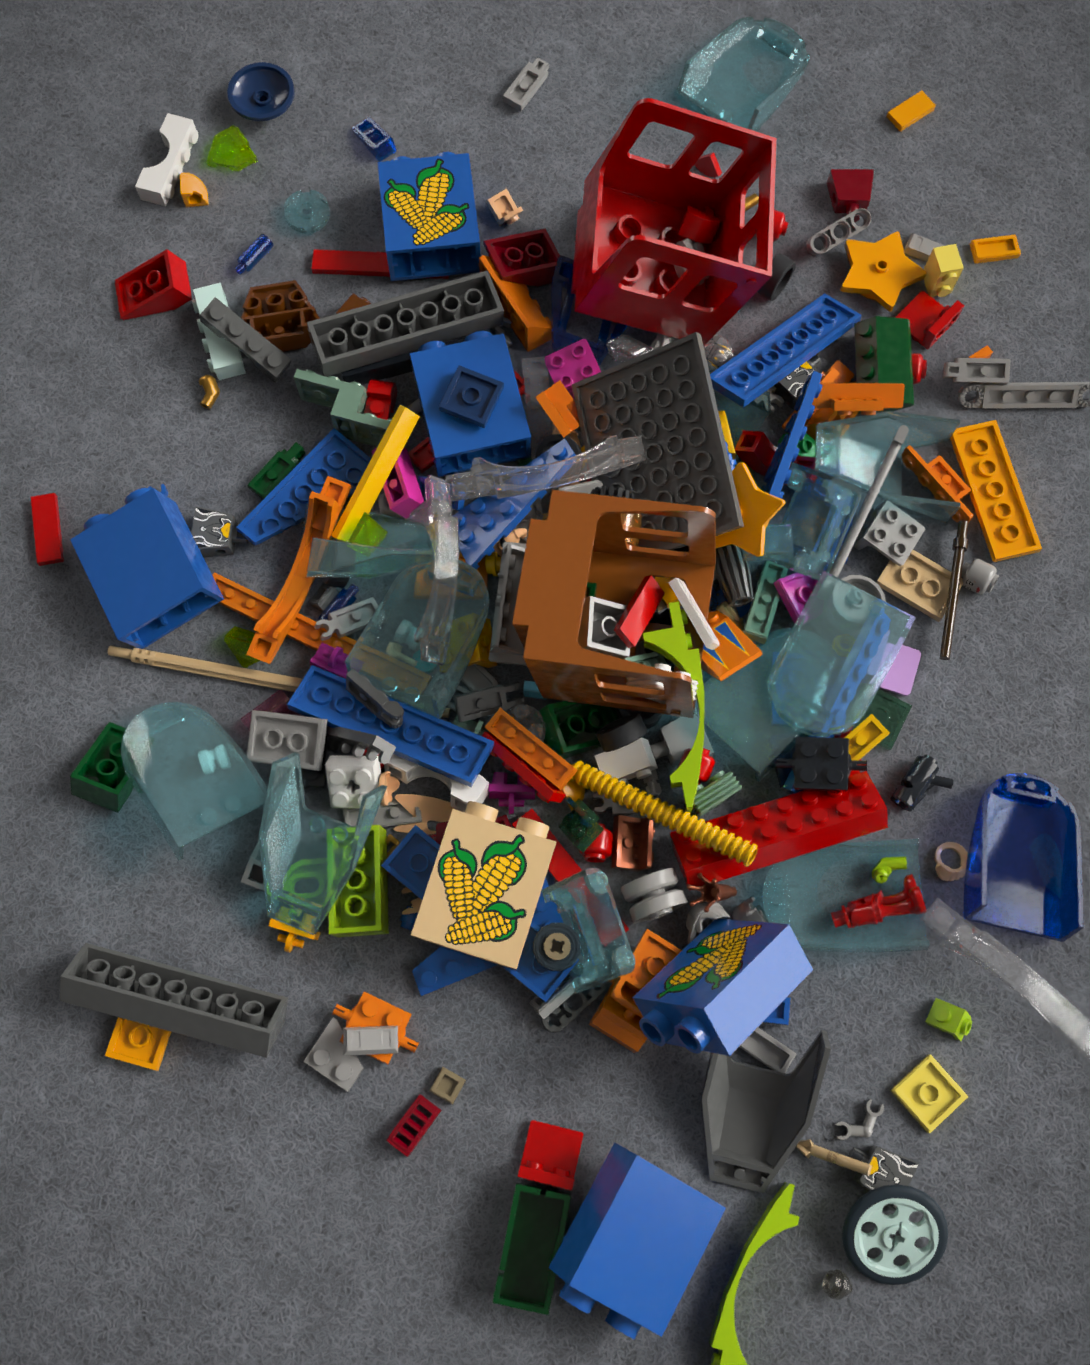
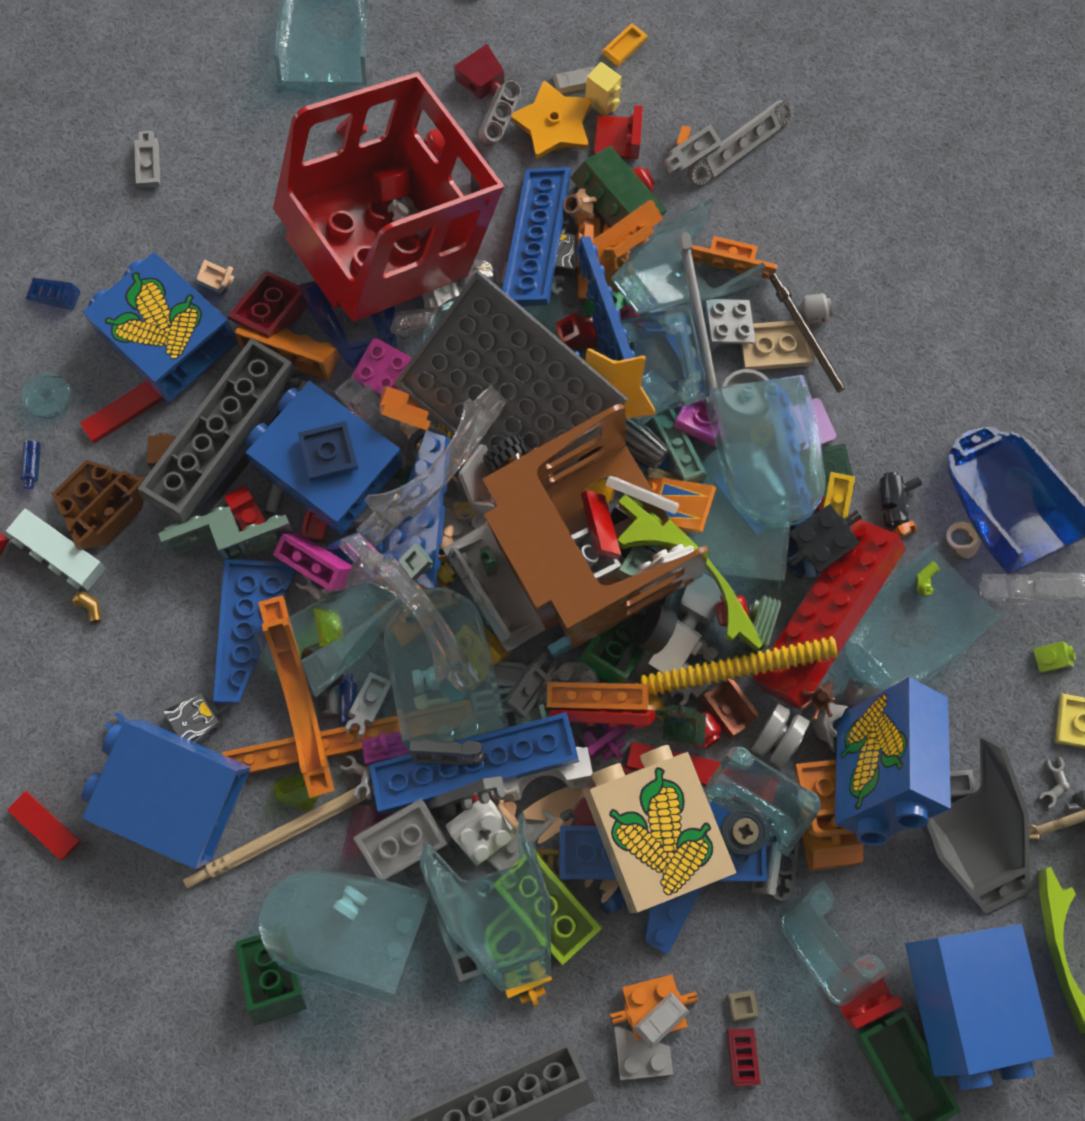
camera: 40 degrees left, 0 degrees up
(235, 330) = (112, 541): dark grey arch -> none
(276, 470) = (204, 631): dark green hinge -> none
(303, 662) = (365, 779): none -> light grey arm
(376, 472) = (296, 572): yellow tile -> none
(472, 534) = (416, 561): none -> sand green tile
(540, 1128) = (825, 953): none -> clear light blue windscreen
(841, 350) = (579, 206): none -> medium nougat rock
(875, 907) = (942, 616): red piece -> none
(905, 814) = (905, 529): none -> orange tile
(995, 491) = (774, 234): light orange plate -> none

